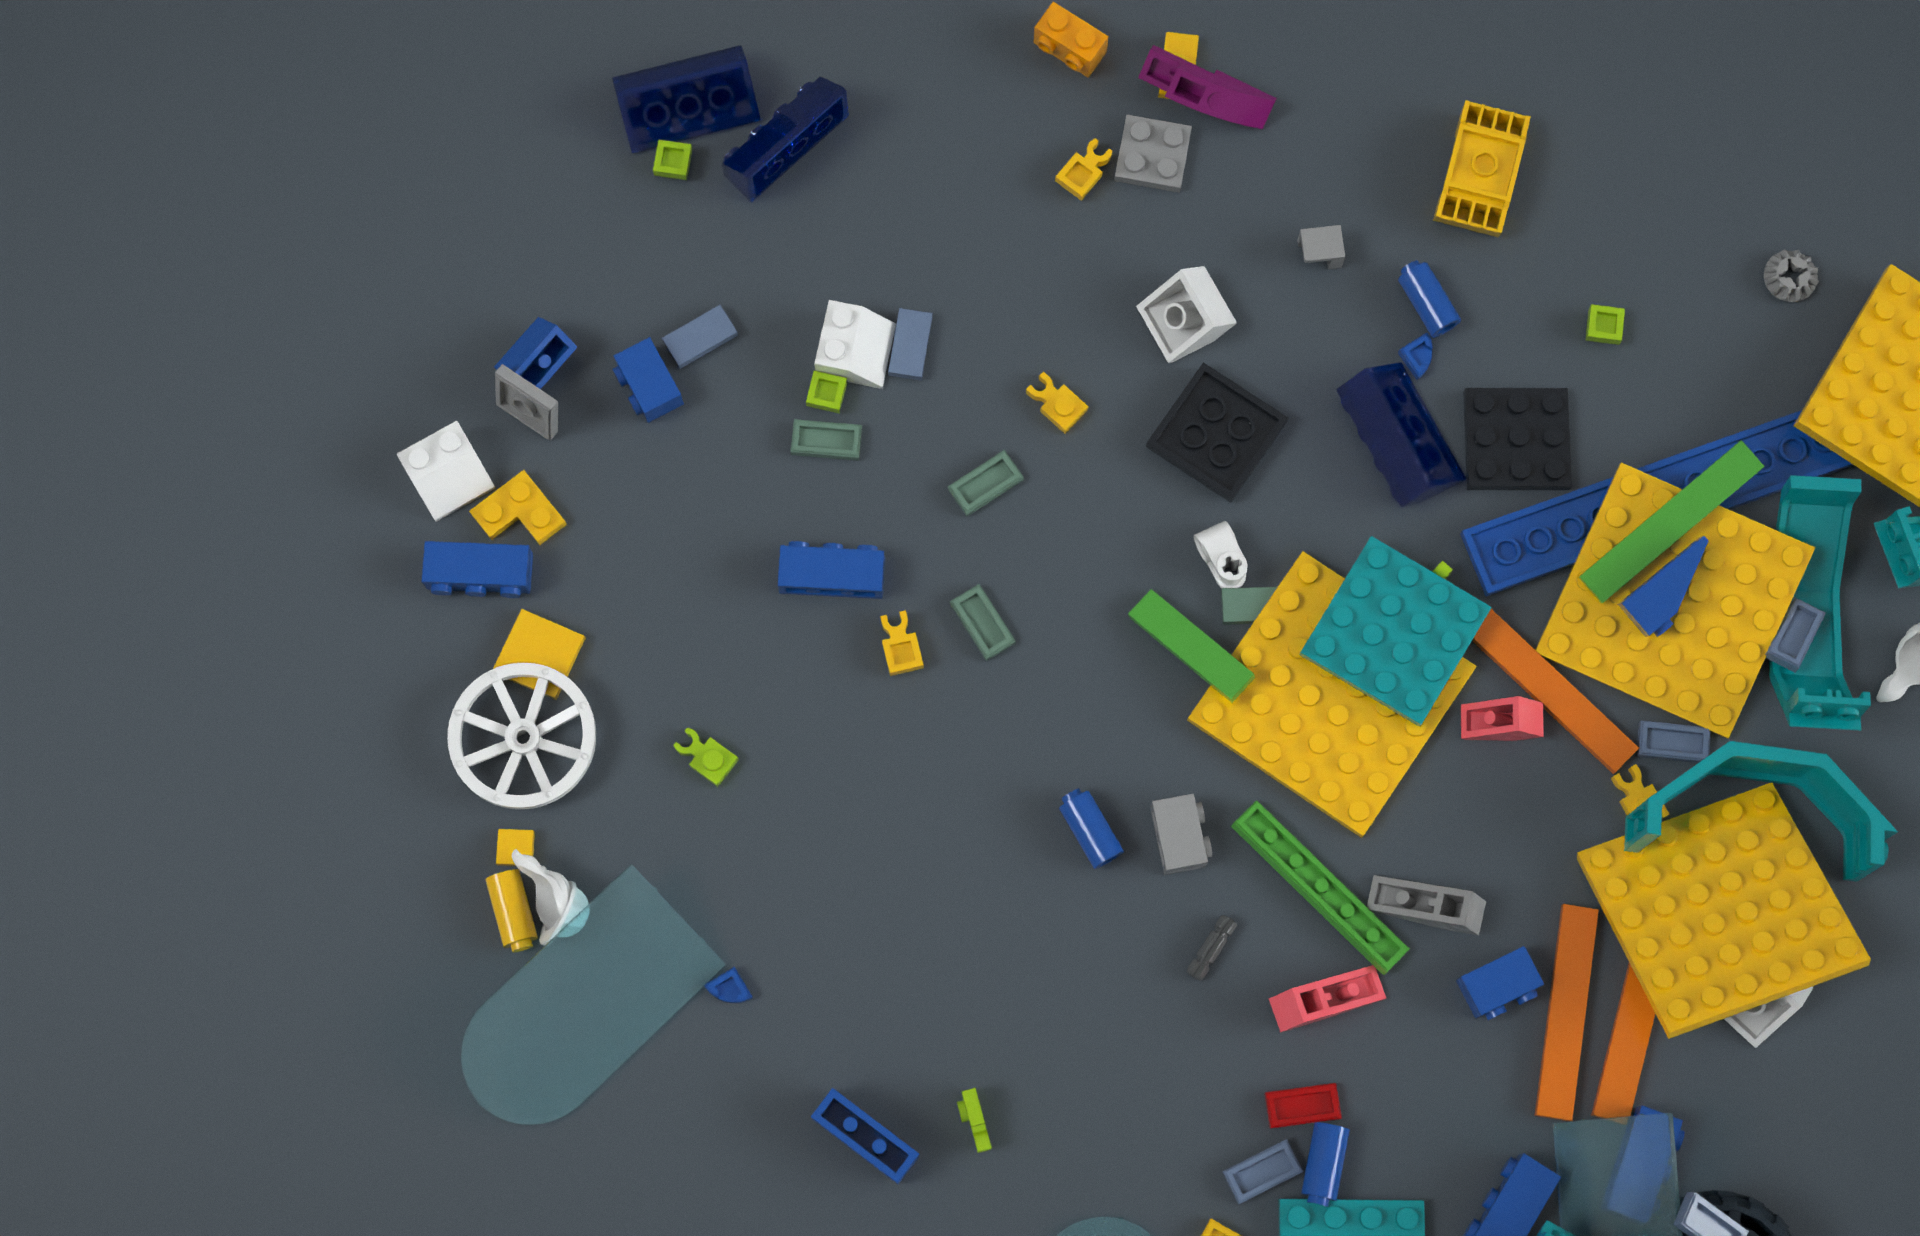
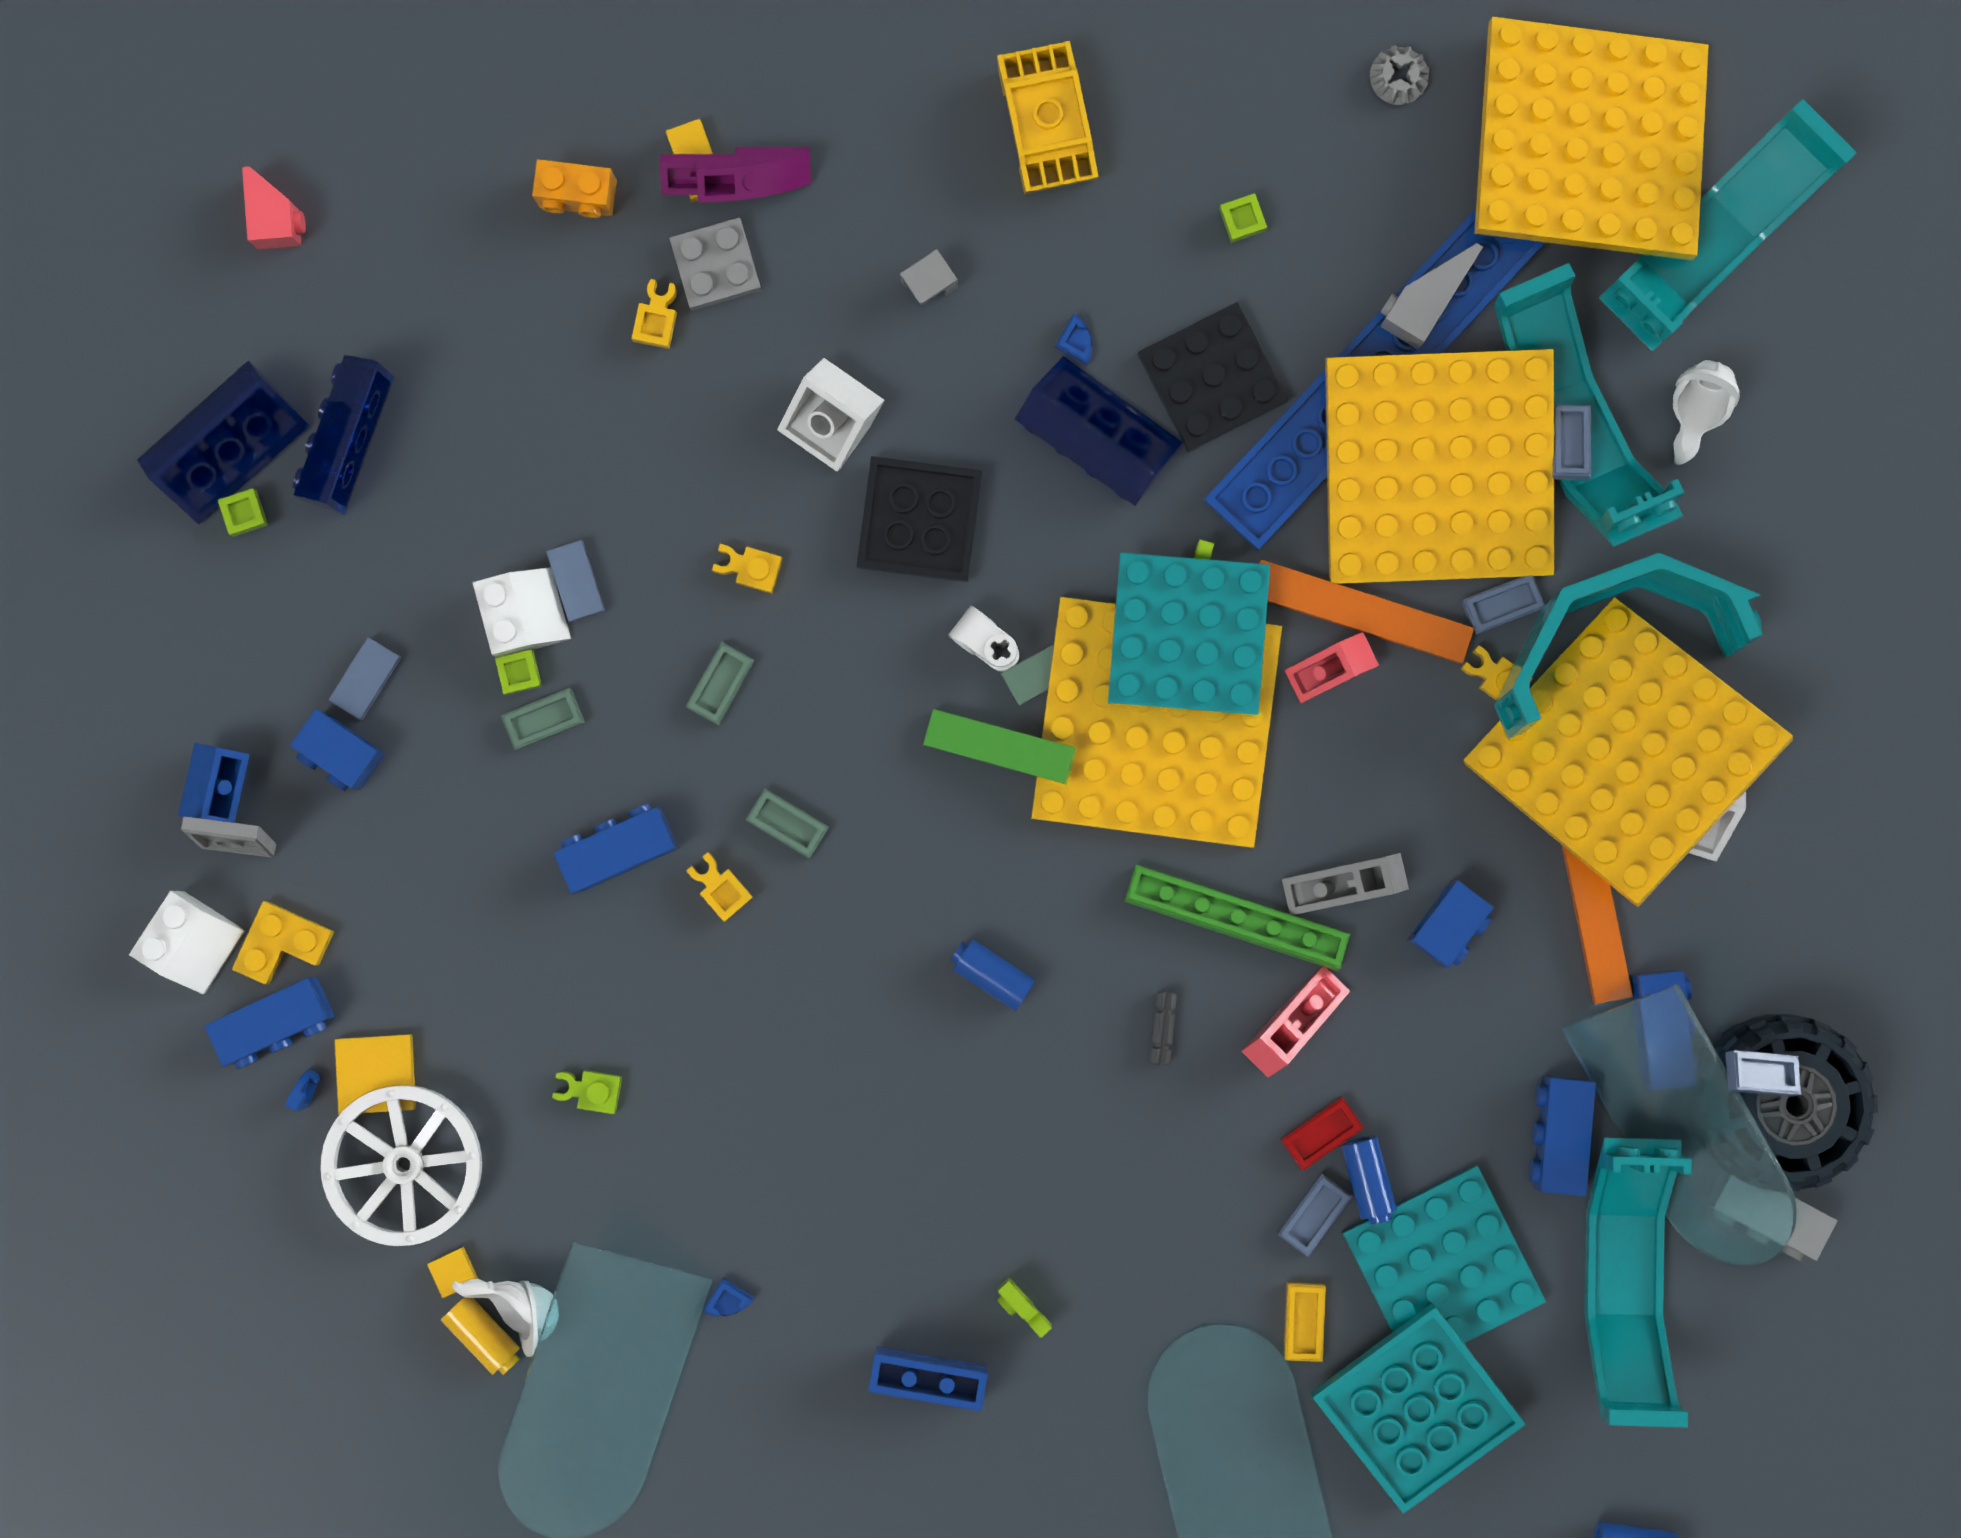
camera: 25 degrees left, 10 degrees up
(474, 637) = (303, 1090): none -> blue tile
(1180, 833) = (1080, 936): light grey brick -> none
(1428, 298) = (1058, 278): blue brick -> none
(1566, 1013) = (1525, 918): orange tile -> none
(1663, 593) = (1428, 471): blue slope -> none
(1671, 521) = (1404, 394): bright green tile -> none
(1701, 455) = (1424, 300): none -> light grey slope

